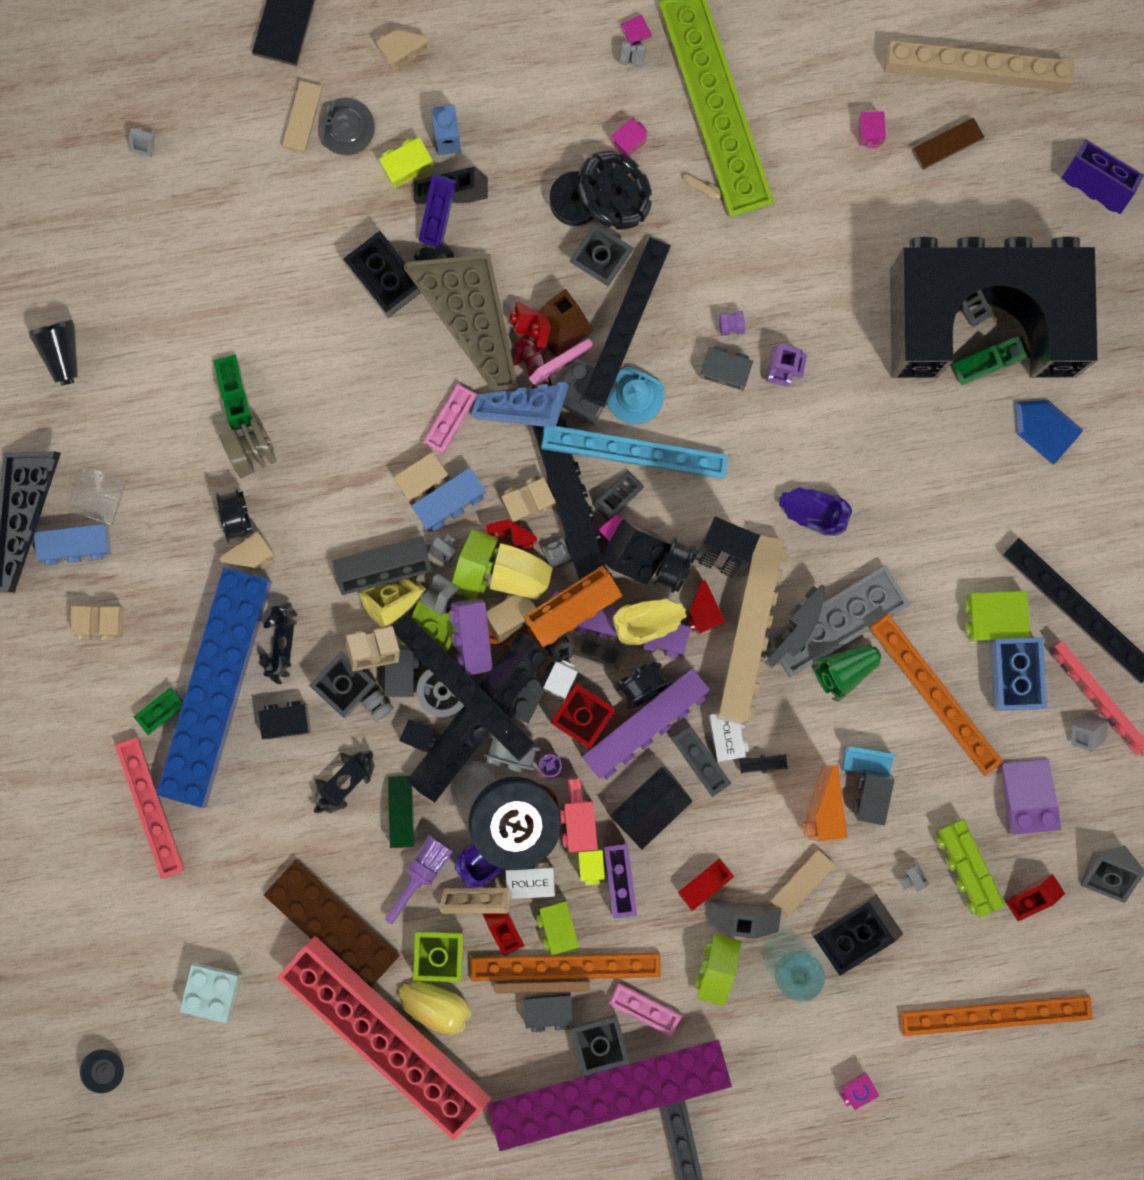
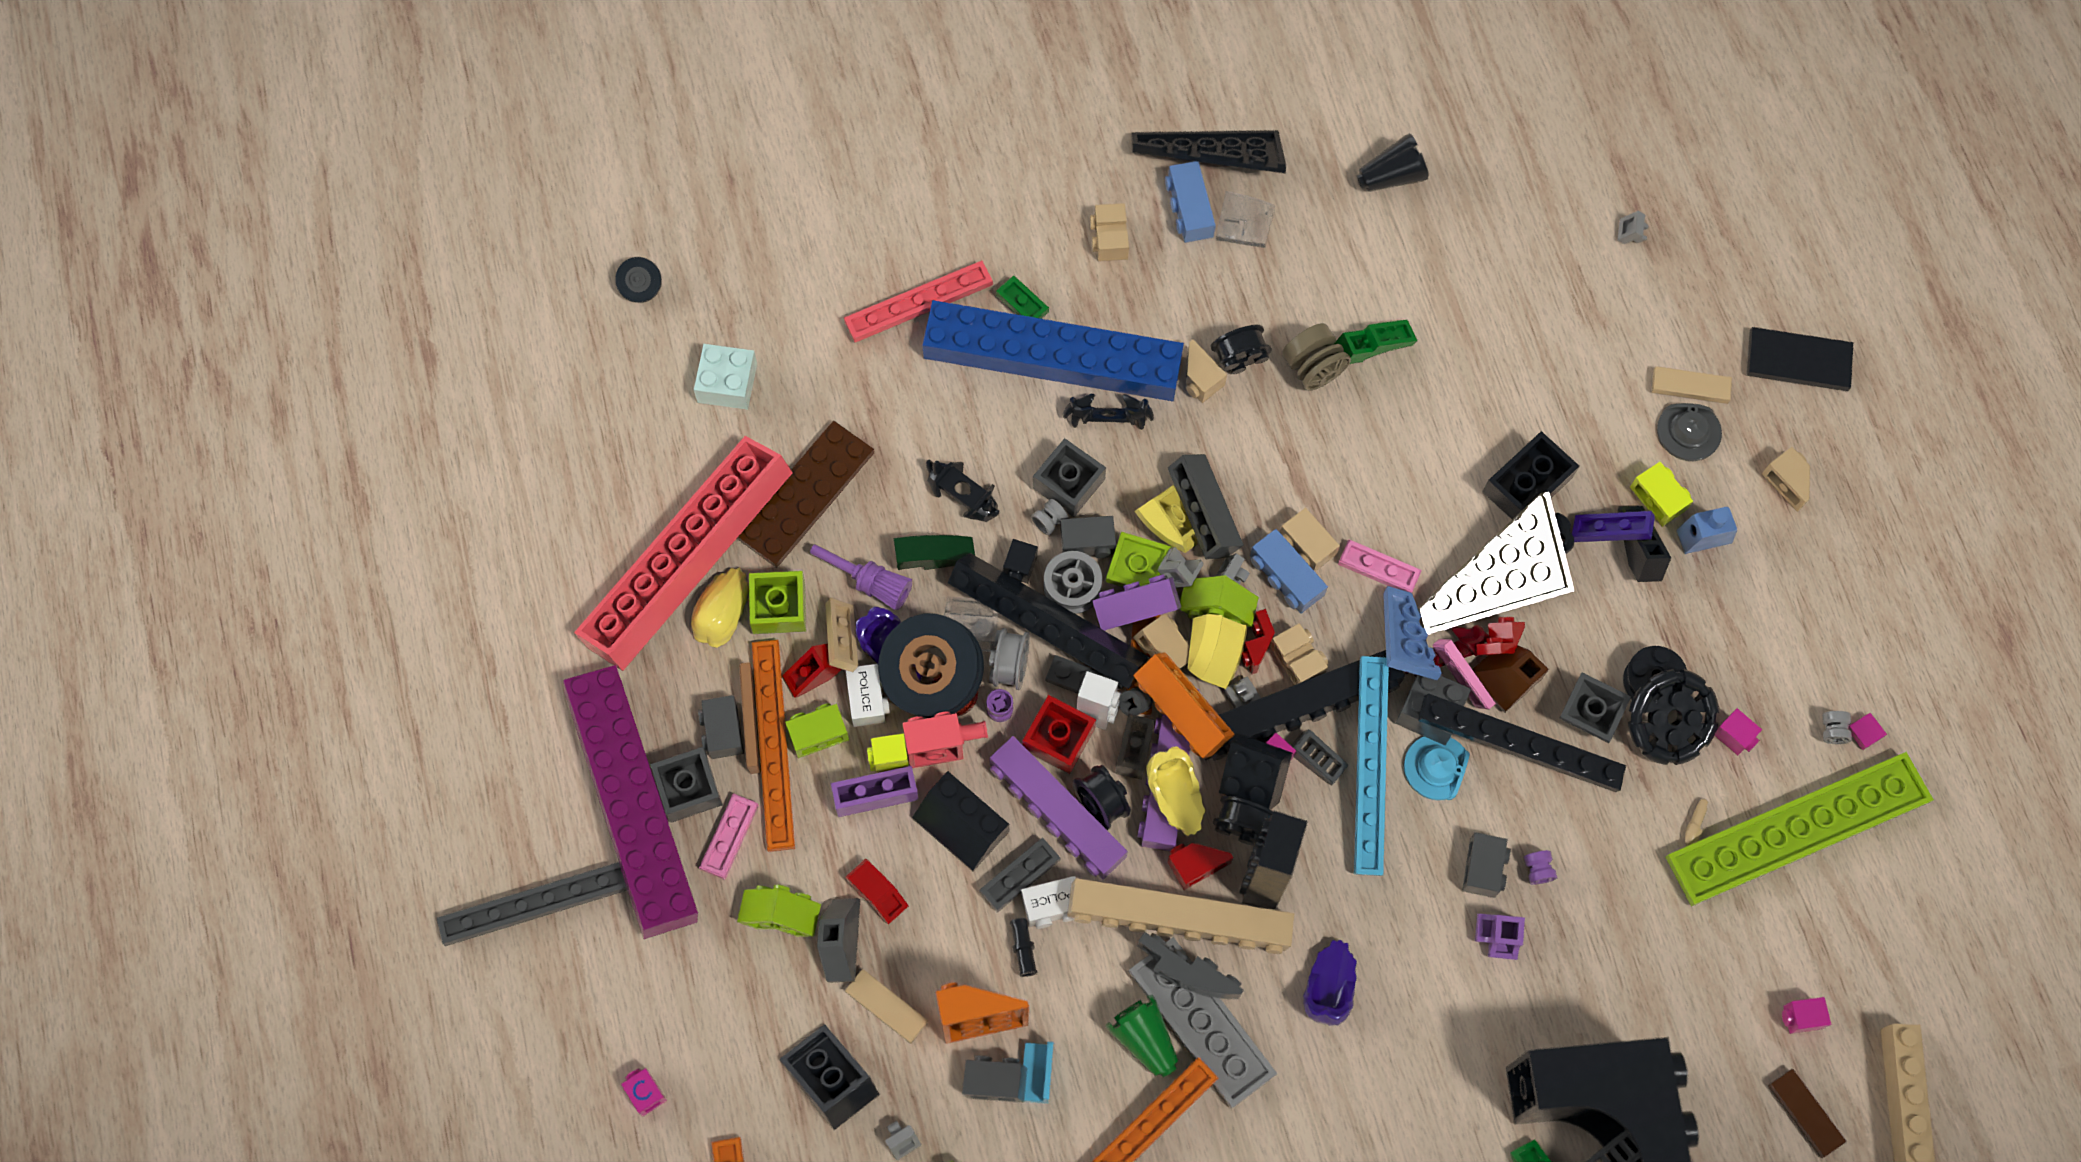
camera: 85 degrees right, 15 degrees down
(284, 721) = (1023, 423): black brick -> none
(372, 649) = (1111, 497): tan brick -> none
(462, 687) = (1078, 595): black plate -> none
(813, 977) = (775, 1024): clear light blue brick -> none

